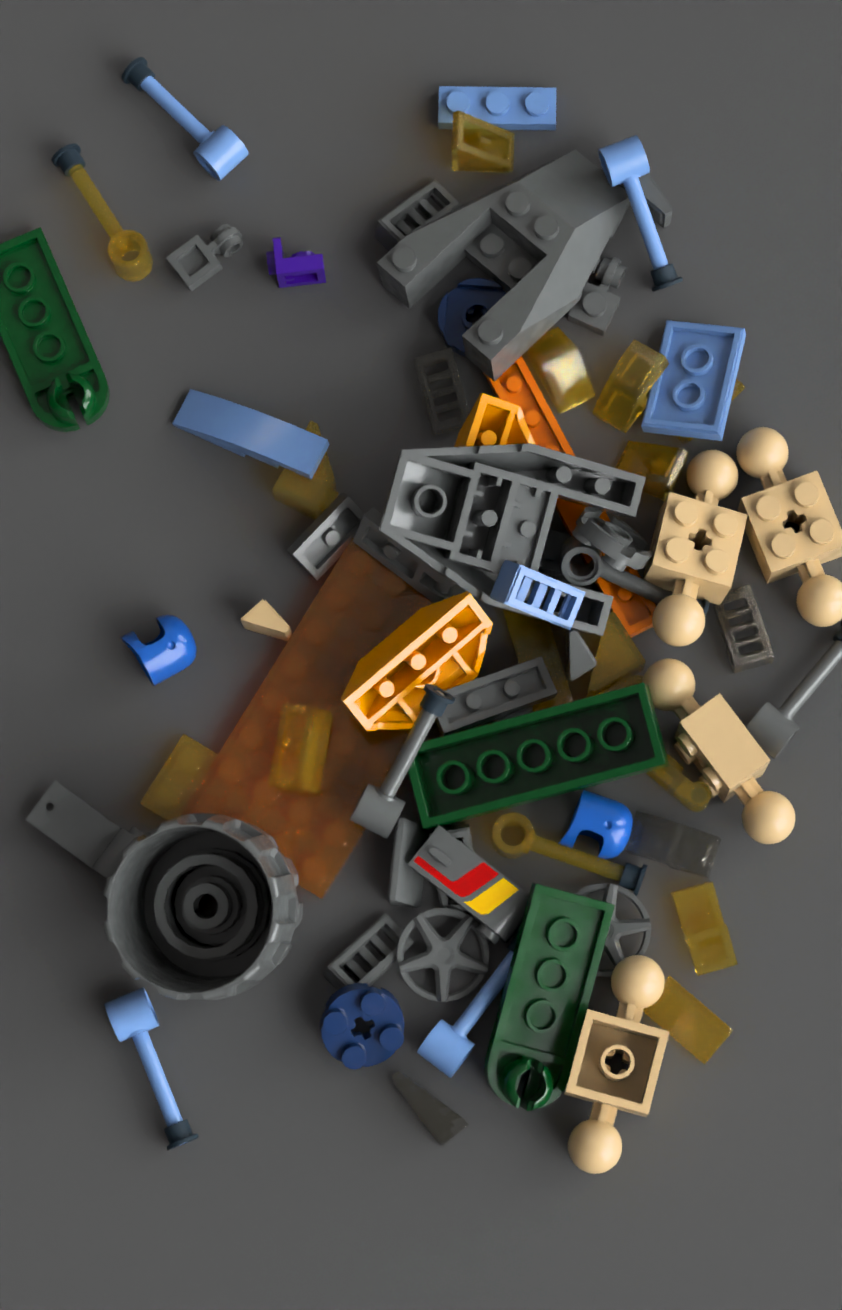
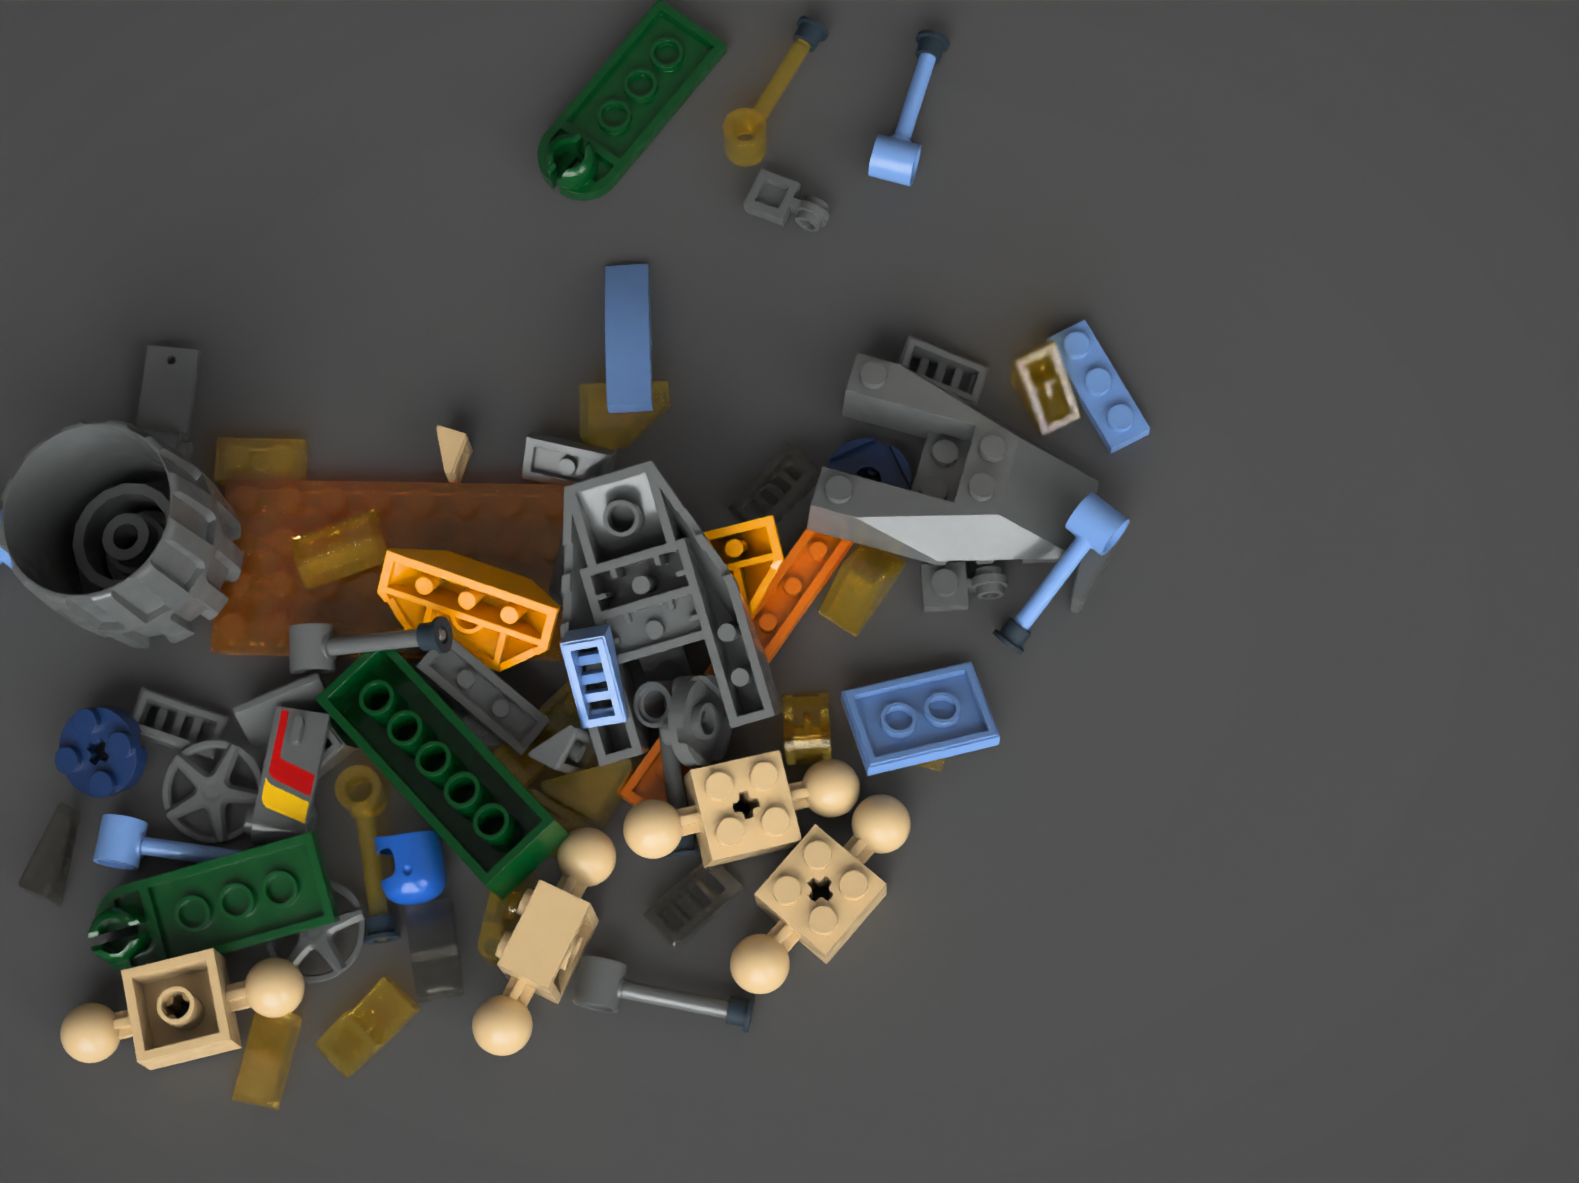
camera: 60 degrees right, 5 degrees down
(167, 653) = (368, 379): blue helmet -> none
(297, 270) = (819, 289): dark purple bracket -> none
(628, 384) = (876, 658): clear yellow slope -> none

